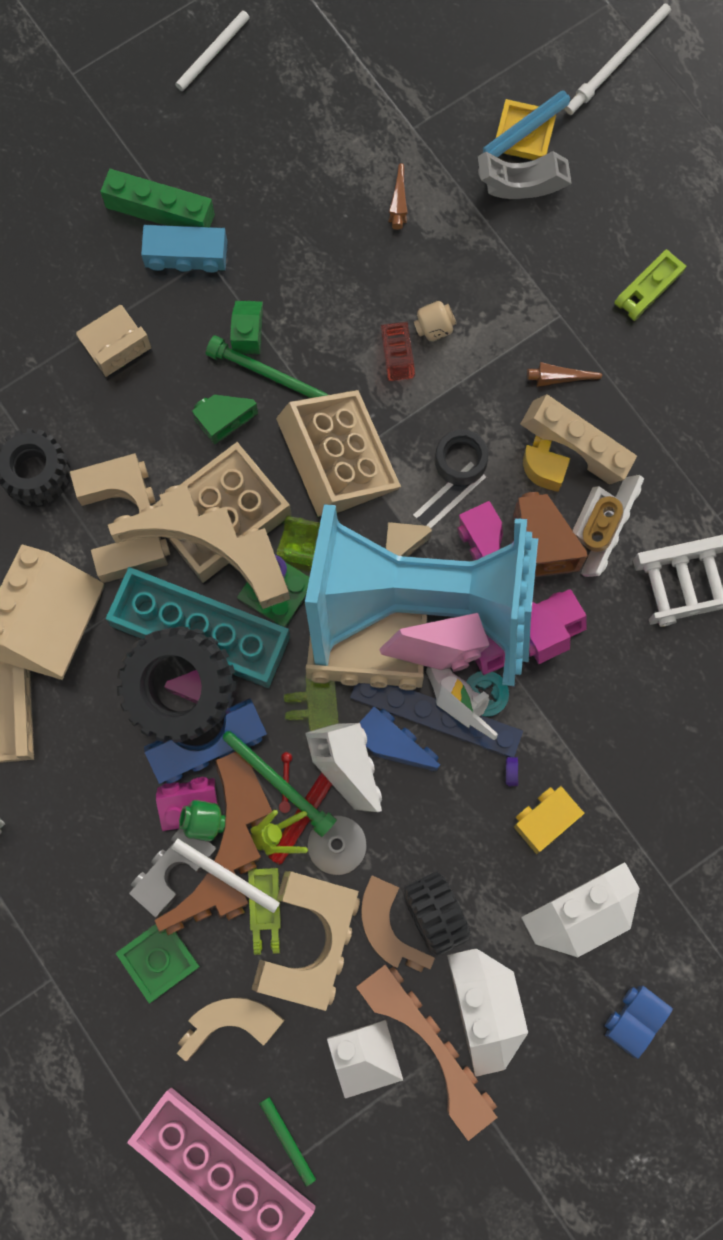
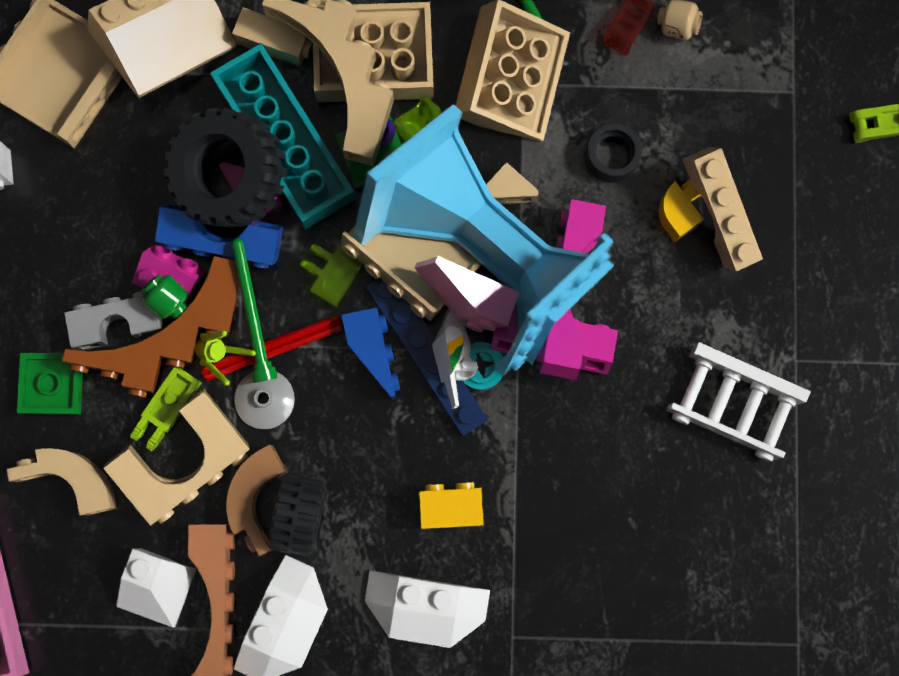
camera: 30 degrees right, 5 degrees up
(225, 875) = (149, 355): white bar -> none
(286, 758) = (276, 297): red hinge -> none
(287, 1141) = (45, 605): green bar -> none
(344, 761) = (317, 326): white slope -> none
(445, 500) = (572, 179): sticker -> none
(512, 771) = (452, 446): dark purple tile -> none
(552, 374) = (745, 136): dark orange piece -> none
(558, 546) = (631, 279): dark orange slope -> none
(601, 525) = (686, 296): pearl gold plate -> none
(628, 492) = (690, 294): white bracket -> none

